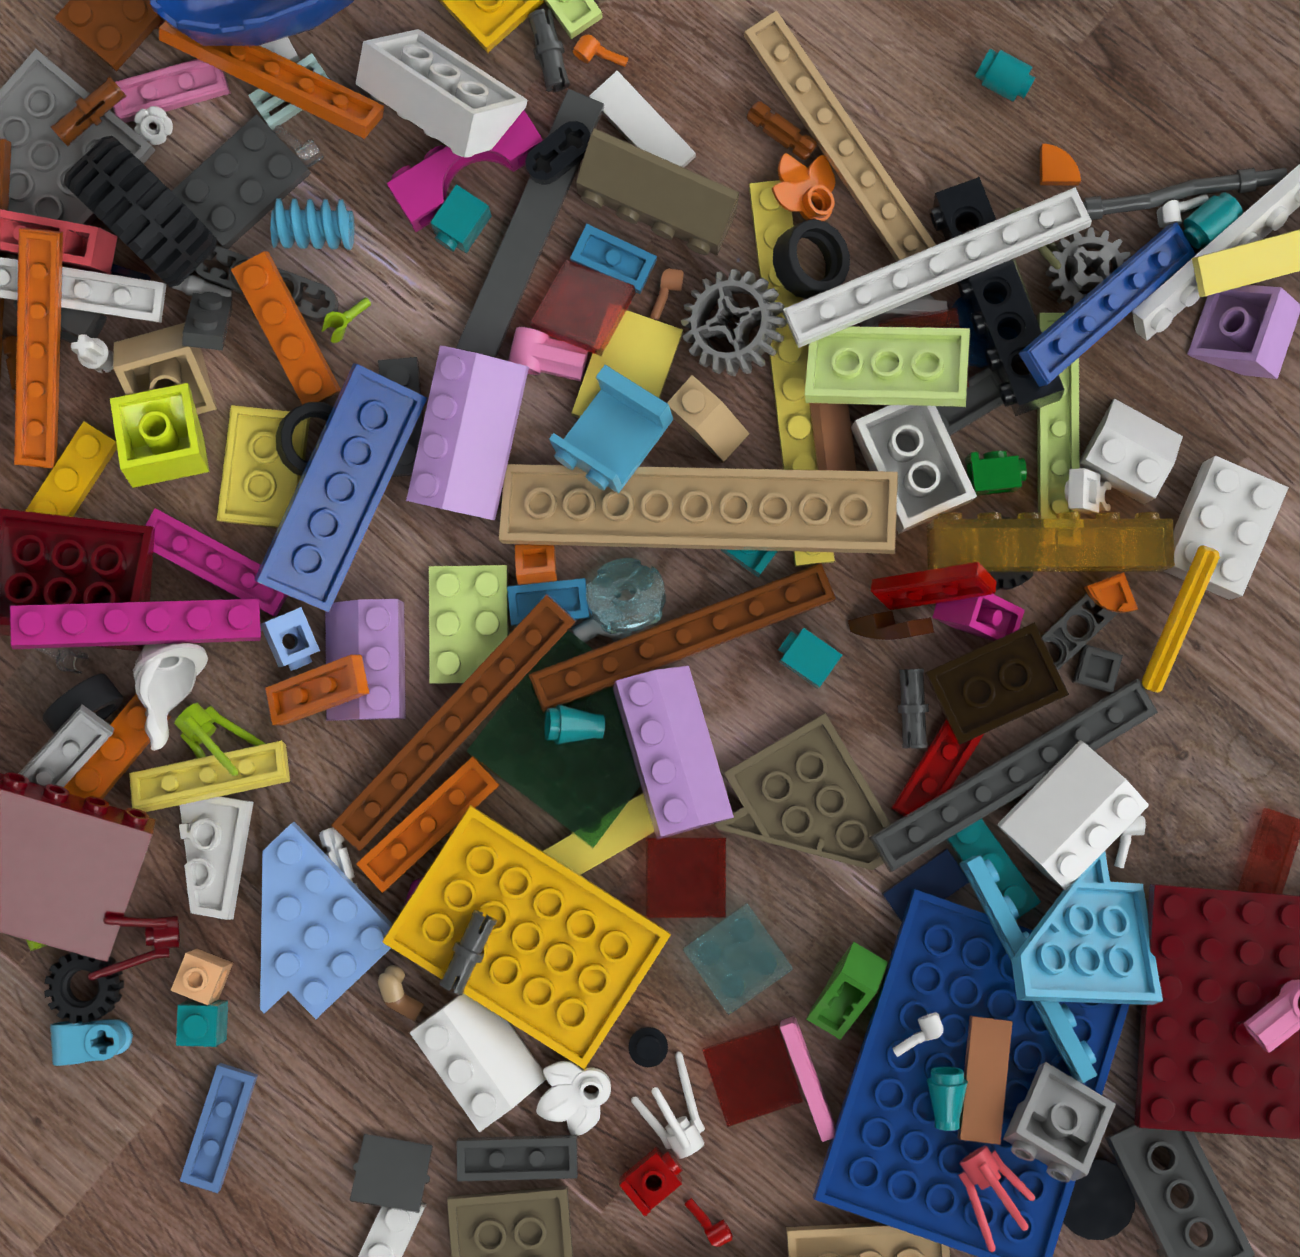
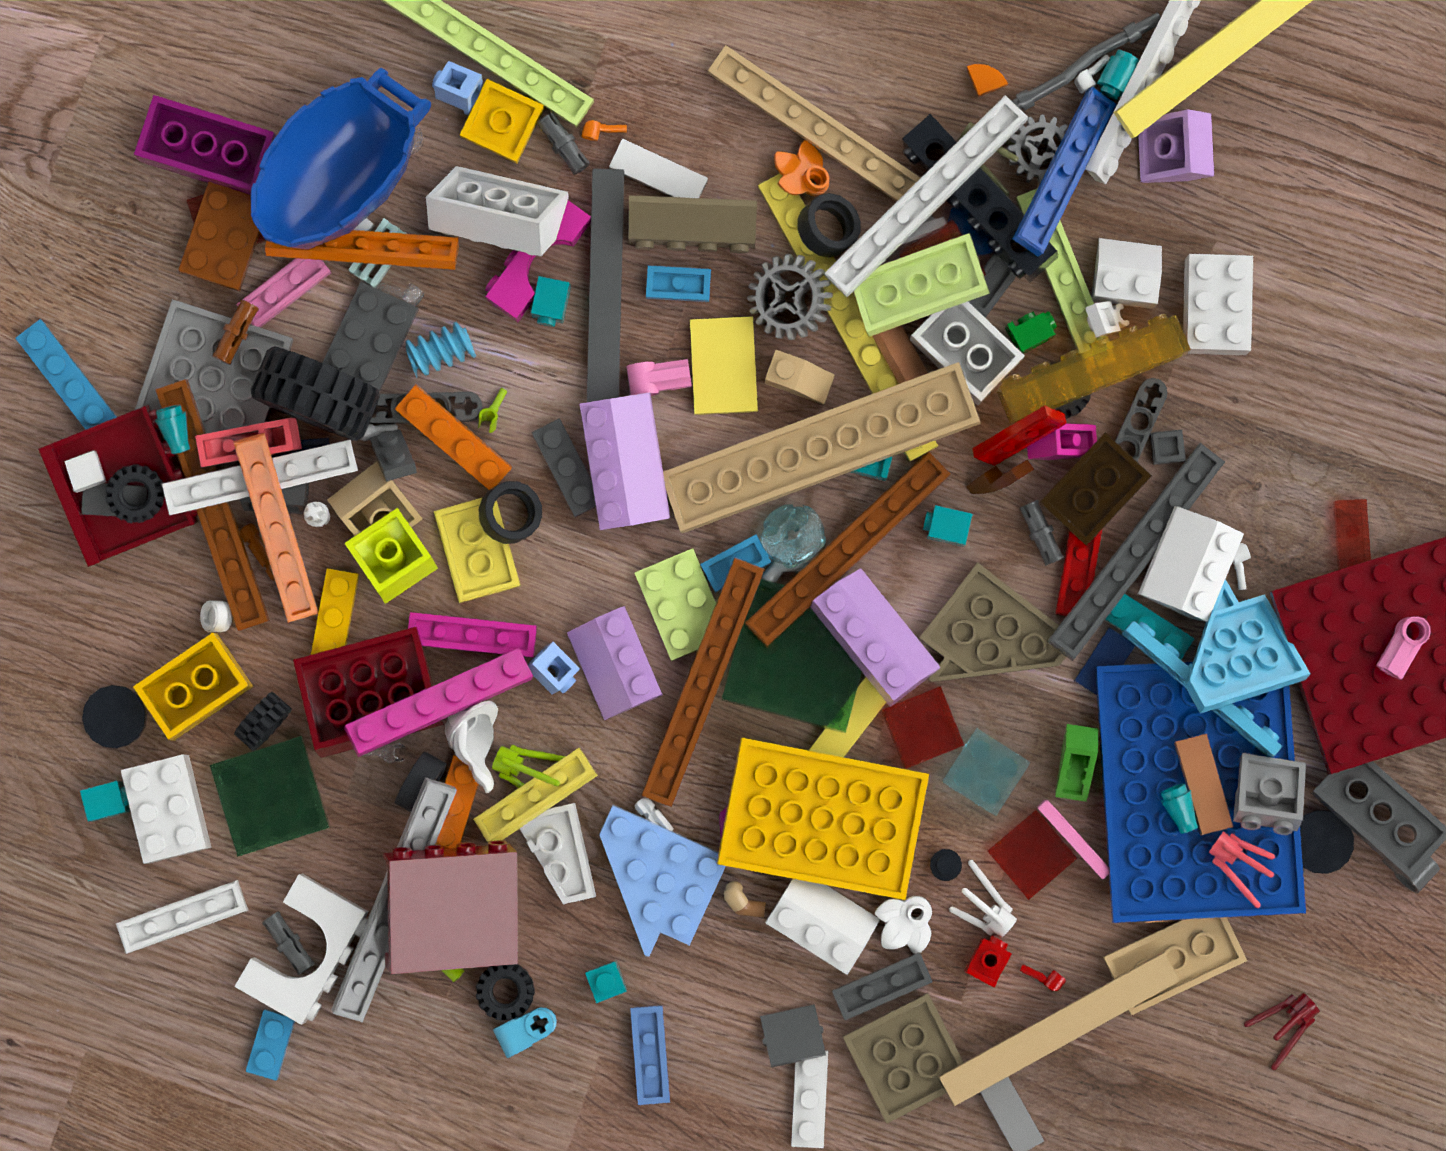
camera: 25 degrees left, 0 degrees up
(159, 932) = (547, 928): dark red plant -> none
(160, 118) = (280, 316): white plate -> none
(201, 976) = (591, 947): light nougat brick -> none
(317, 690) = (591, 698): orange plate -> none
(340, 488) = (547, 540): plate -> none
(427, 824) = (713, 766): orange plate -> none
(468, 952) = (785, 845): dark grey pin -> none
(535, 563) = (714, 538): orange plate -> none
(552, 145) = (600, 216): black beam -> none
(571, 725) = (791, 647): teal cone -> none
(583, 307) = (671, 330): clear red tile -> none
(613, 432) = (734, 416): medium azure panel -> none
(670, 280) = (728, 282): nougat hand -> none
(781, 130) = (765, 134): dark orange axle -> none
(931, 1029) = (1148, 762): white hand -> none
(1005, 75) = (918, 25): teal brick -> none
(1113, 594) = (1155, 387): orange tile -> none
(1180, 618) = (1212, 386): yellow axle -> none

